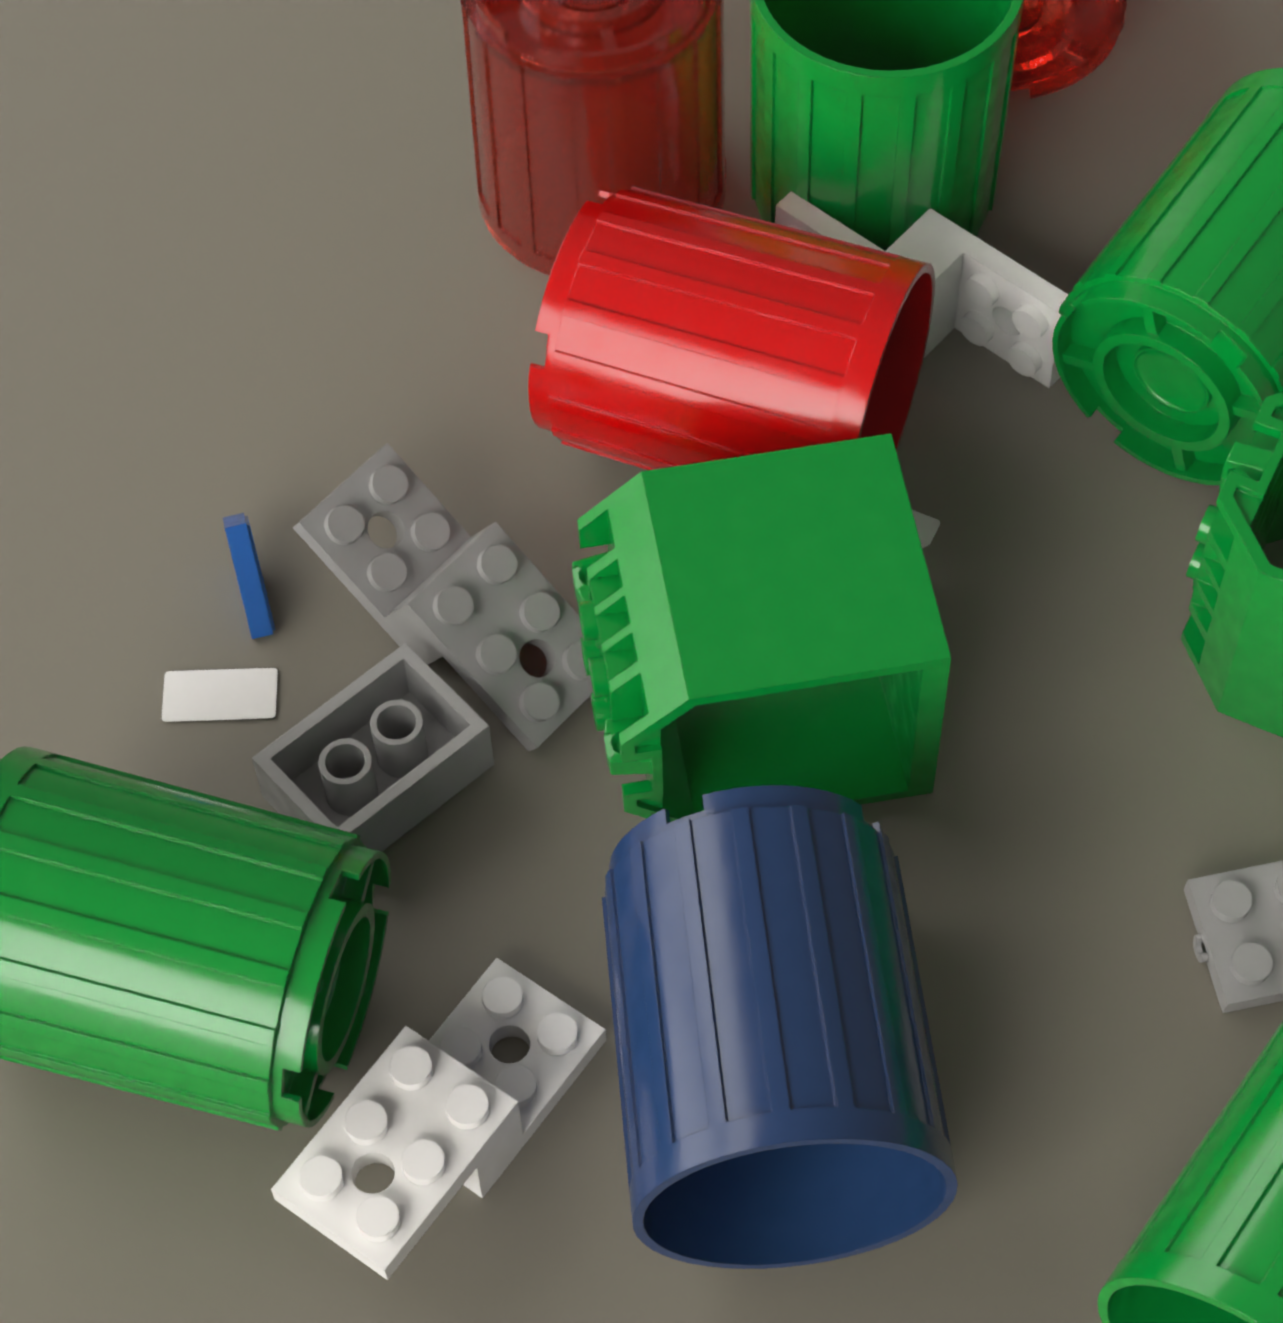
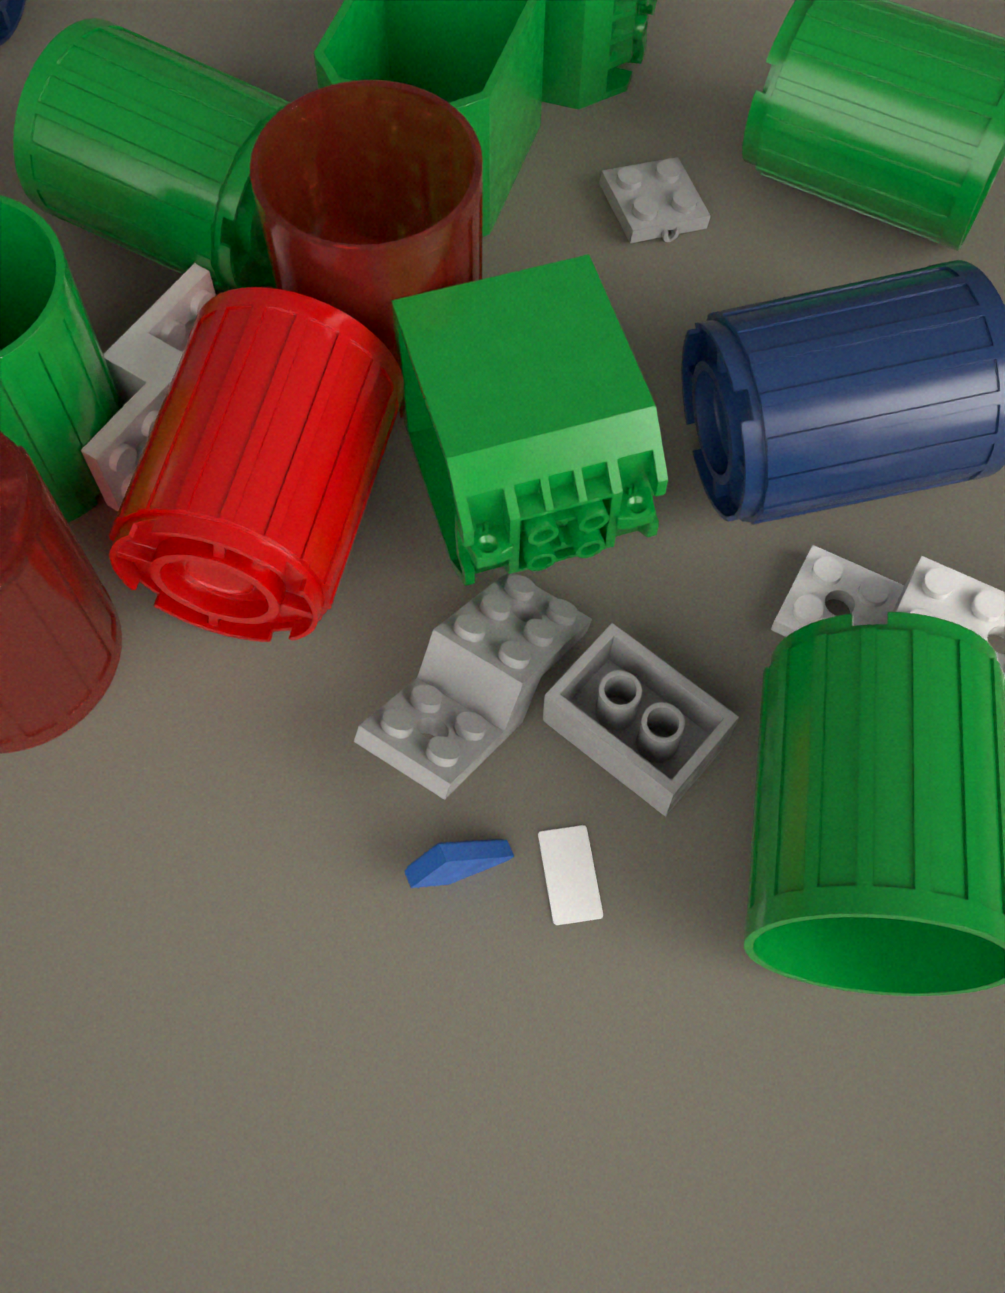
camera: 100 degrees left, 5 degrees up
(1039, 448) = (370, 198): none -> clear red container

